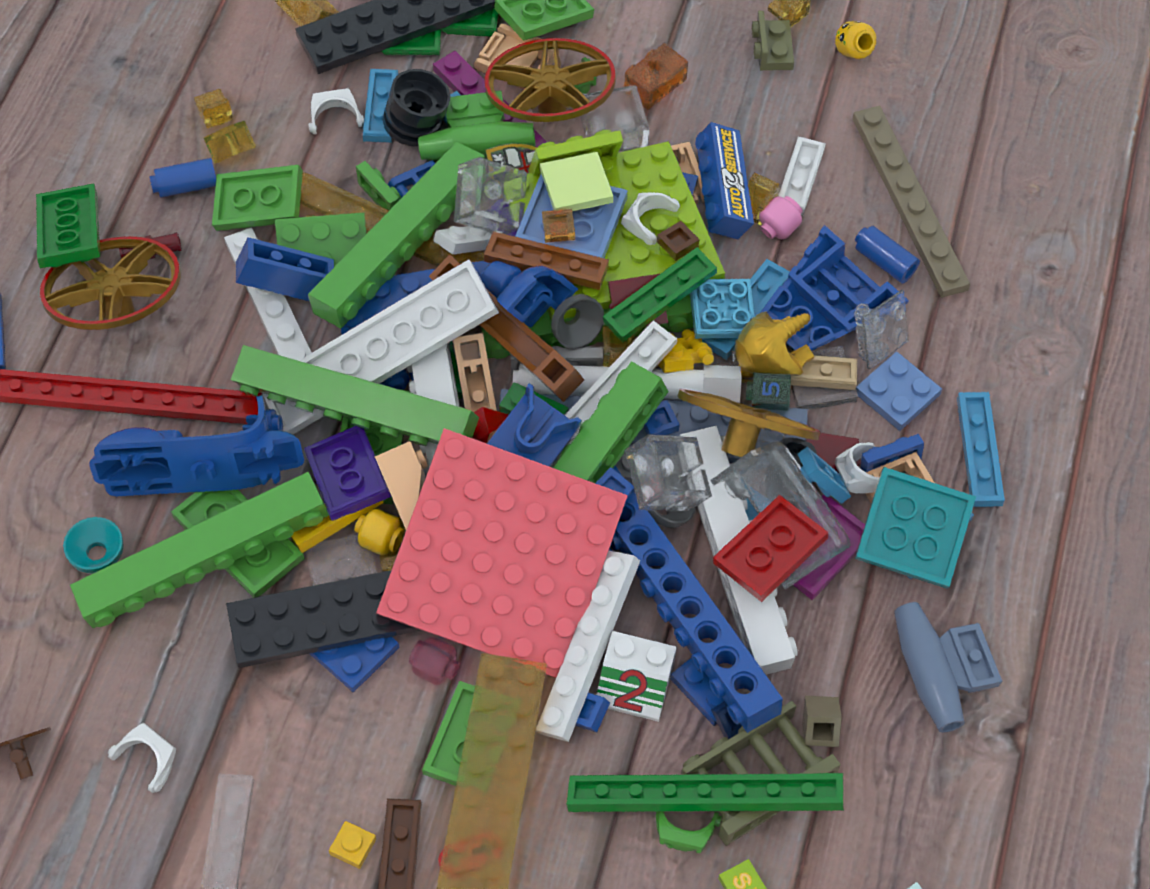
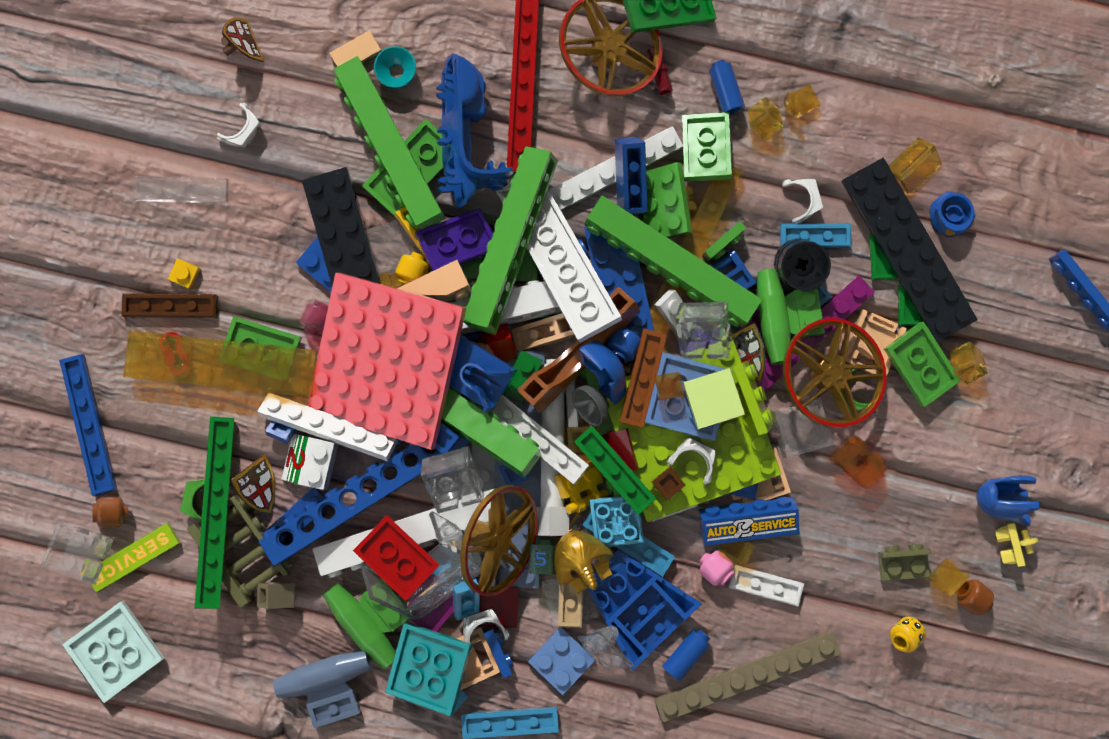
camera: 90 degrees right, 25 degrees up
(60, 602) = (363, 46): none -> light nougat tile
(667, 746) = (256, 485): none -> shield
(854, 610) = (365, 623): none -> bright green plate

